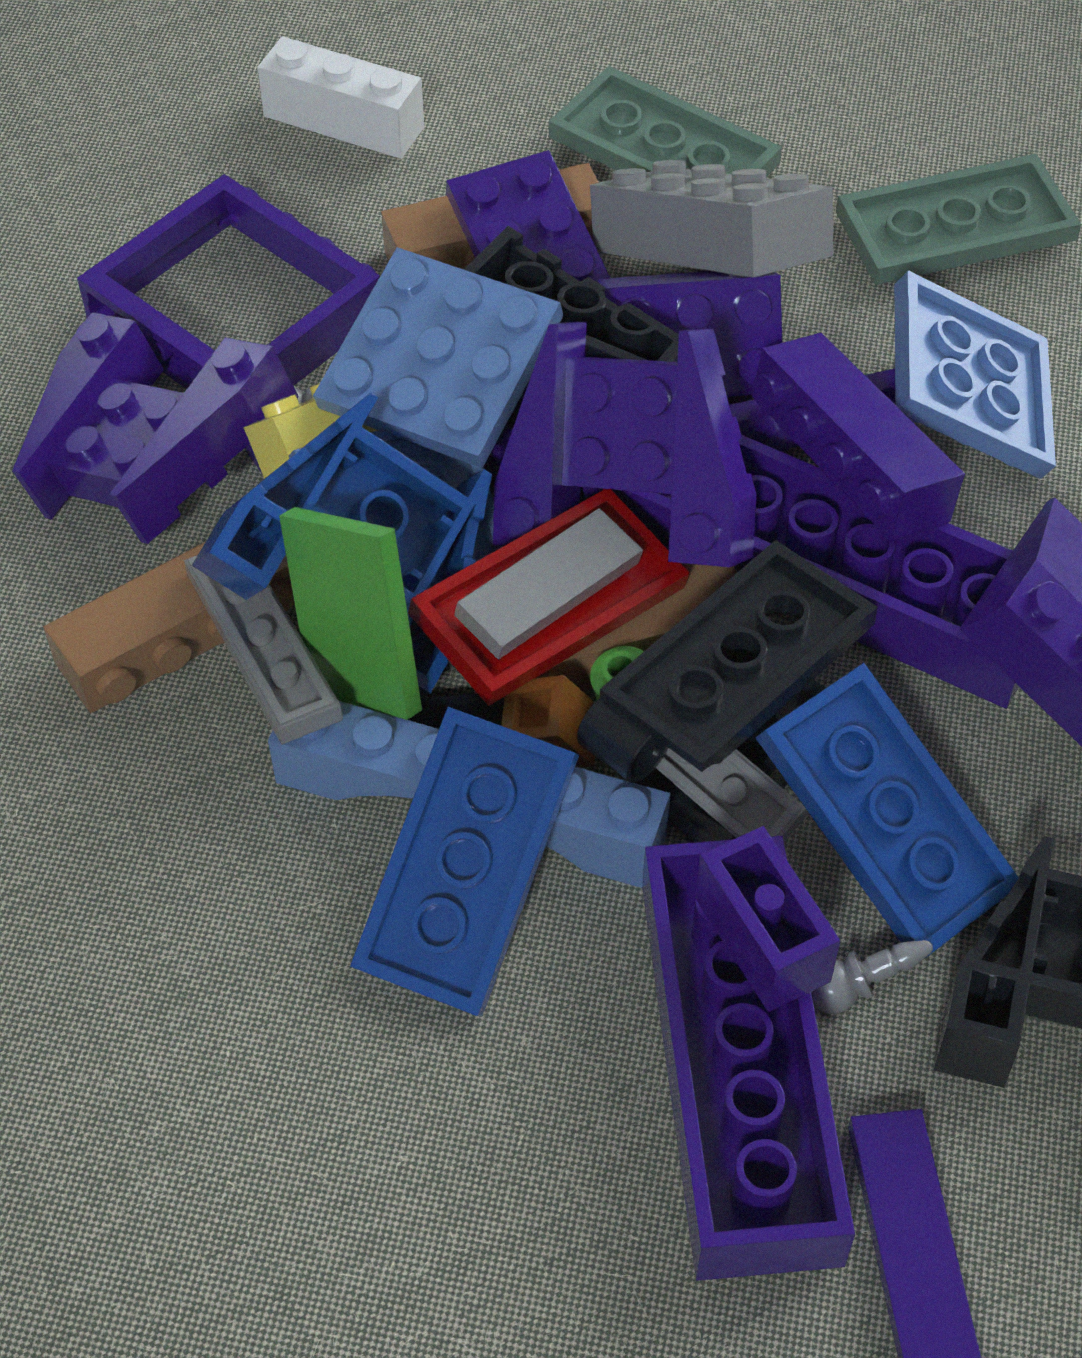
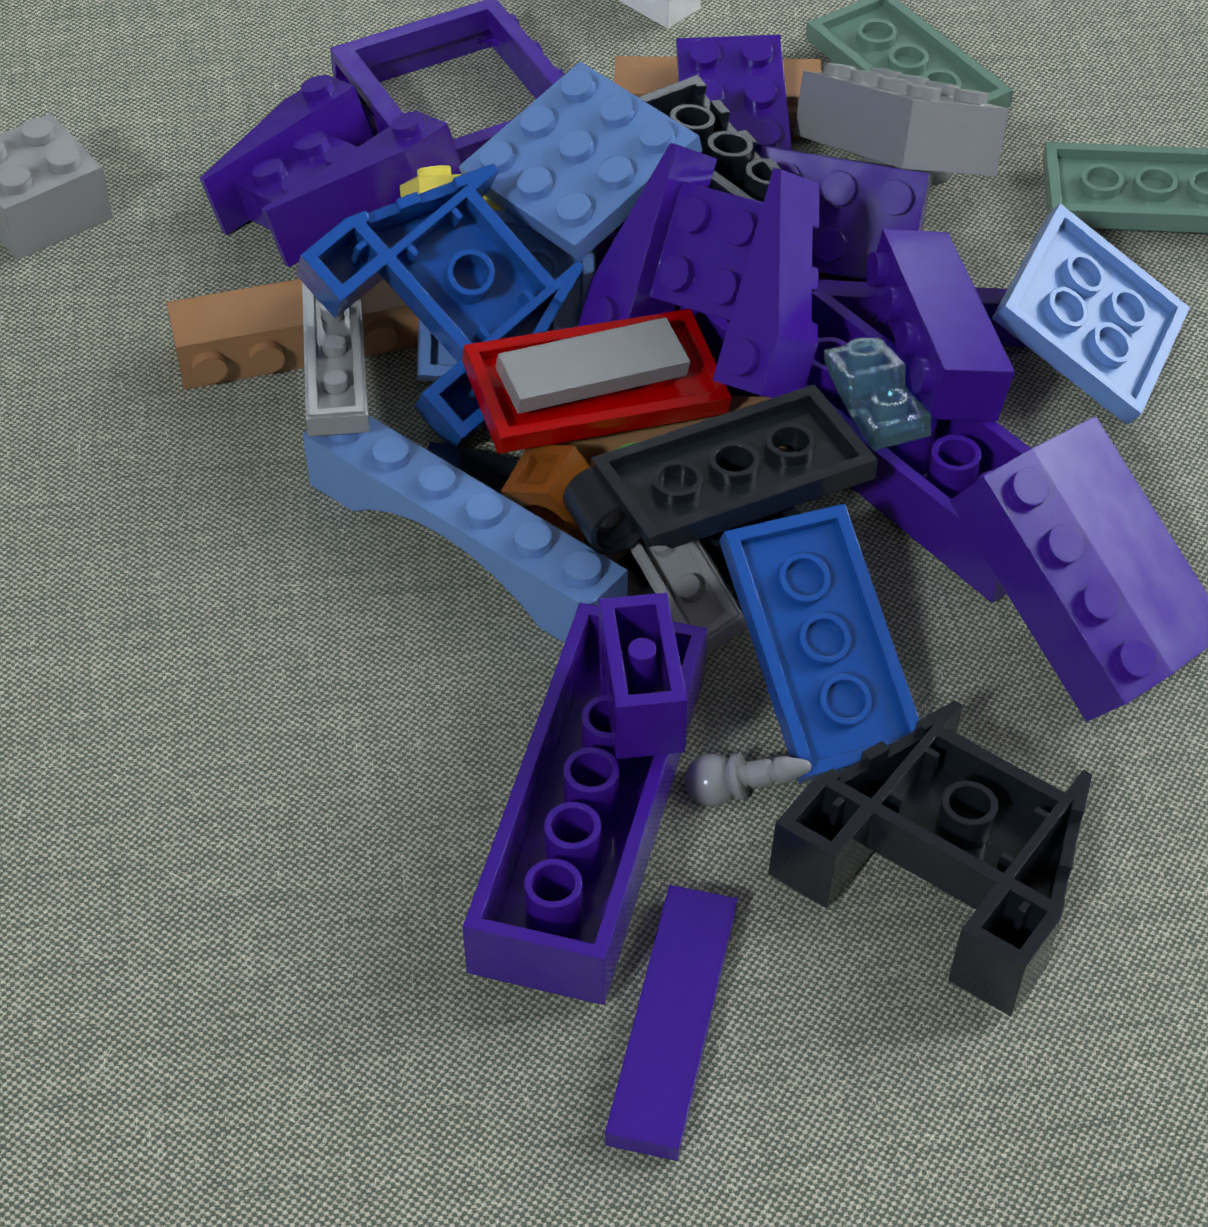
camera: 20 degrees right, 5 degrees down
(353, 609) = (408, 341): bright green tile -> none
(464, 861) = (421, 572): blue plate -> none
(822, 524) = (875, 393): none -> clear light blue slope

